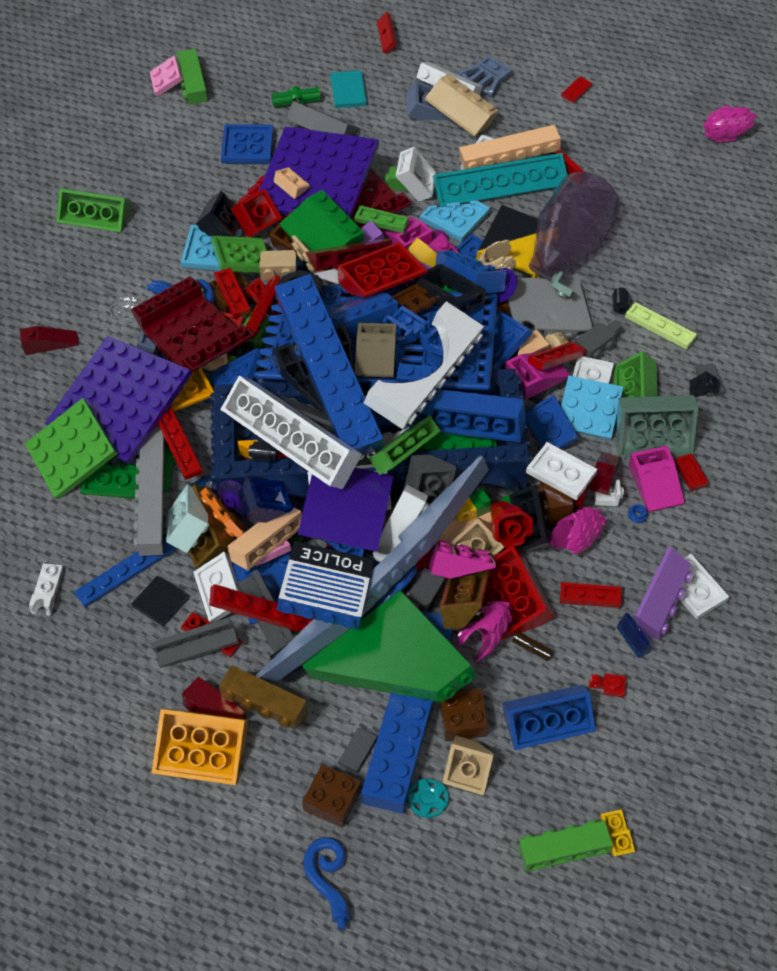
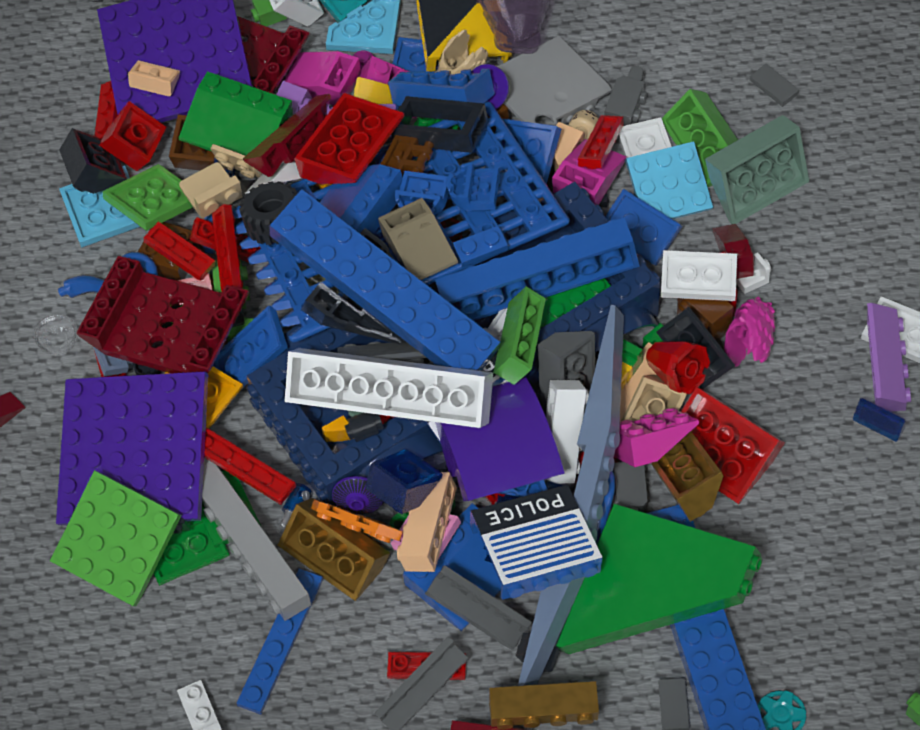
camera: 25 degrees left, 5 degrees up
(159, 601) = (342, 659): black tile -> none
(186, 520) = (313, 550): light aqua slope -> none
(219, 572) = (402, 608): white plate -> none
(247, 144) = (53, 51): blue plate -> none
(254, 607) = (474, 610): red plate -> none
(382, 219) = (291, 72): bright green tile -> none
(403, 400) = (499, 286): white arch -> none
(464, 715) = (766, 606): reddish brown brick -> none
(468, 765) = (802, 655): tan slope -> none
(491, 623) = (731, 497): dark pink head -> none
(530, 645) = (785, 488): dark brown piece -> none
(549, 716) = (849, 556): blue slope -> none
(563, 291) = (553, 58): sand green bracket -> none
(590, 594) = (805, 398): red plate -> none
(611, 684) = (889, 485): red plate -> none
(621, 300) = (621, 38): black brick -> none
(637, 508) = (795, 274): blue plate -> none
(656, 478) = (792, 230): dark pink slope -> none
(661, 325) = (682, 46): yellowish green plate -> none
(691, 472) = (821, 203): red plate -> none
(703, 383) = (772, 94): black bracket -> none

